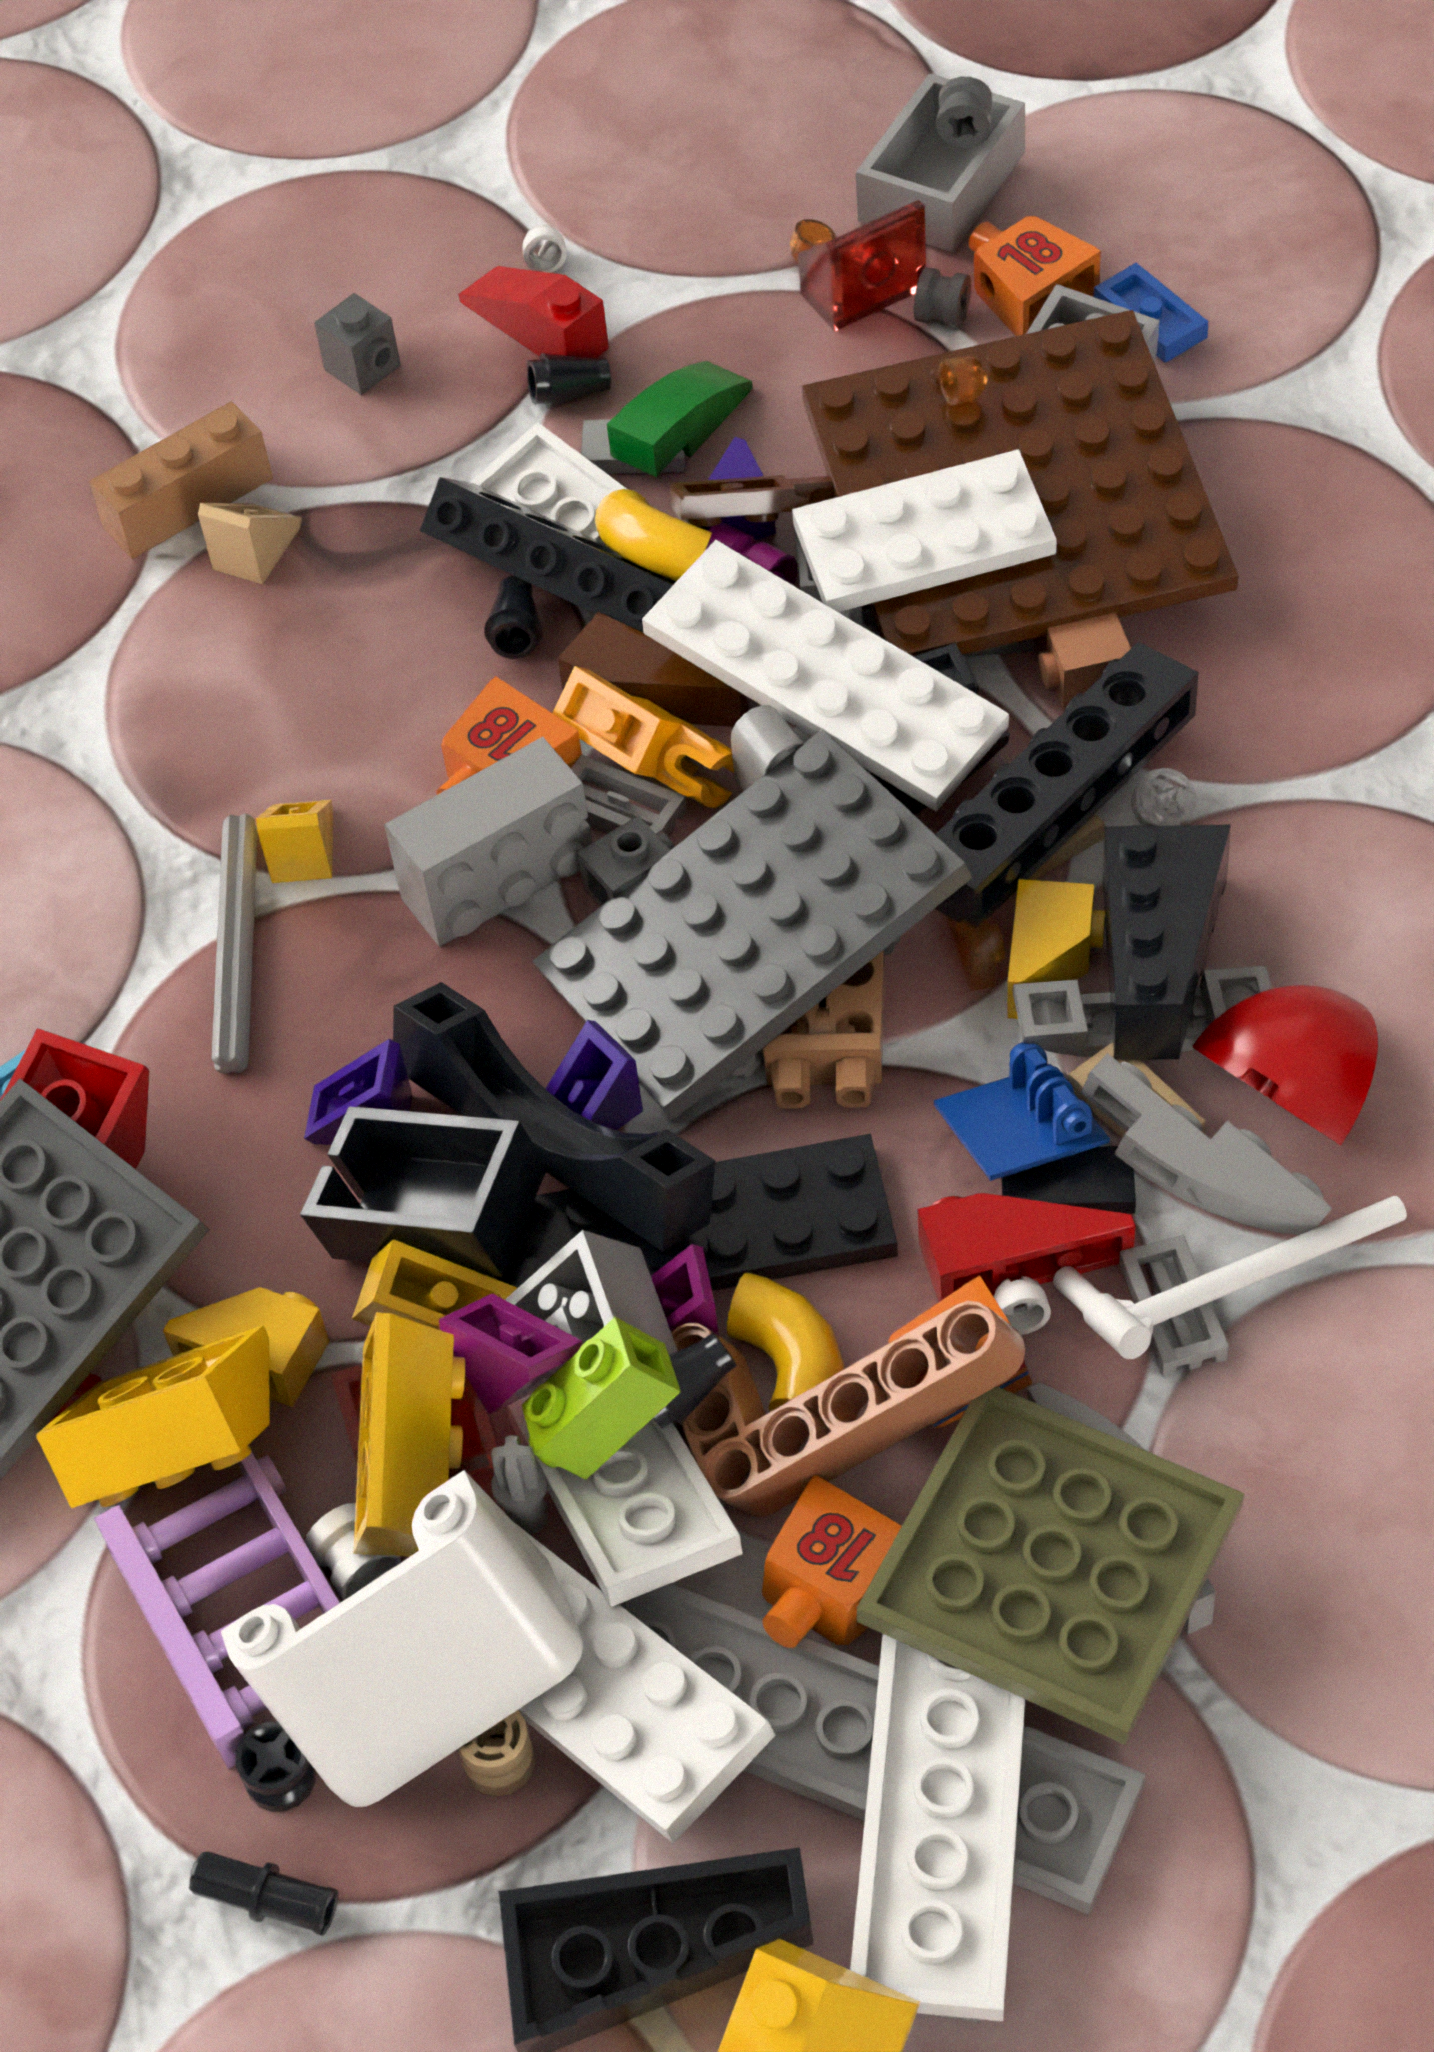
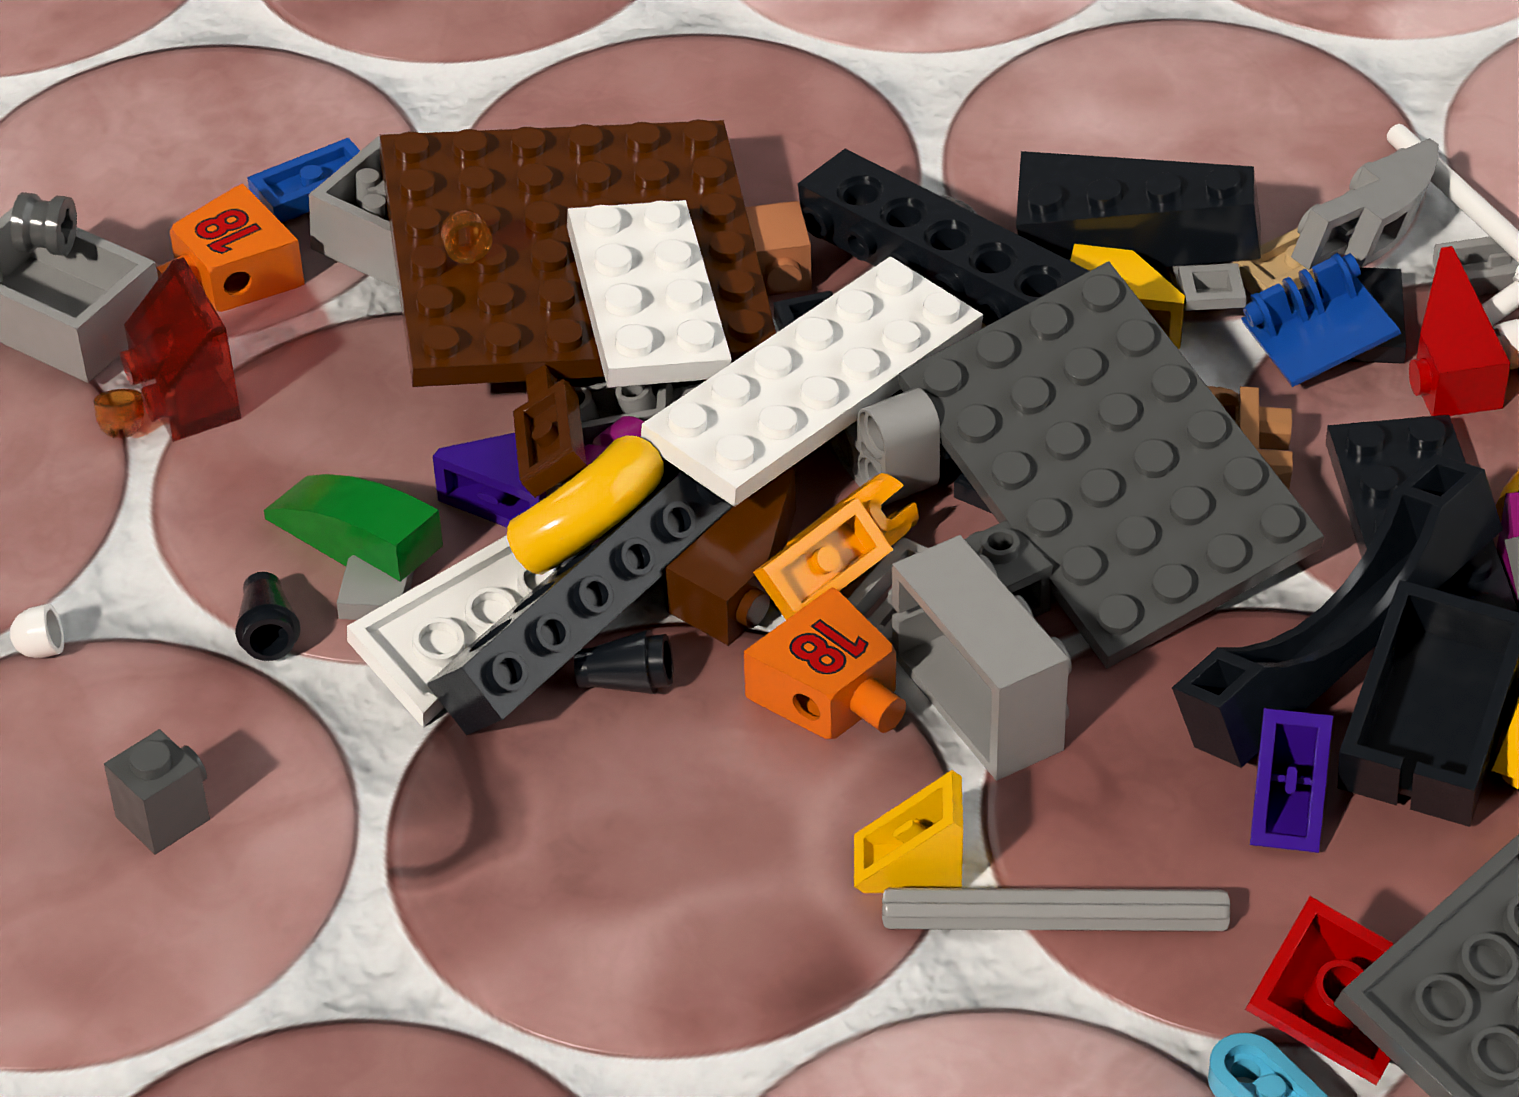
camera: 90 degrees left, 10 degrees down
(164, 484) = (343, 960): medium nougat brick -> none
(246, 537) = (446, 898): tan slope -> none
(540, 311) = (147, 635): red slope -> none
(598, 1079) = (1275, 590): dark purple slope -> none
(942, 297) = (248, 314): dark grey wheel -> none
(1301, 1050) = (1271, 136): red brick -> none

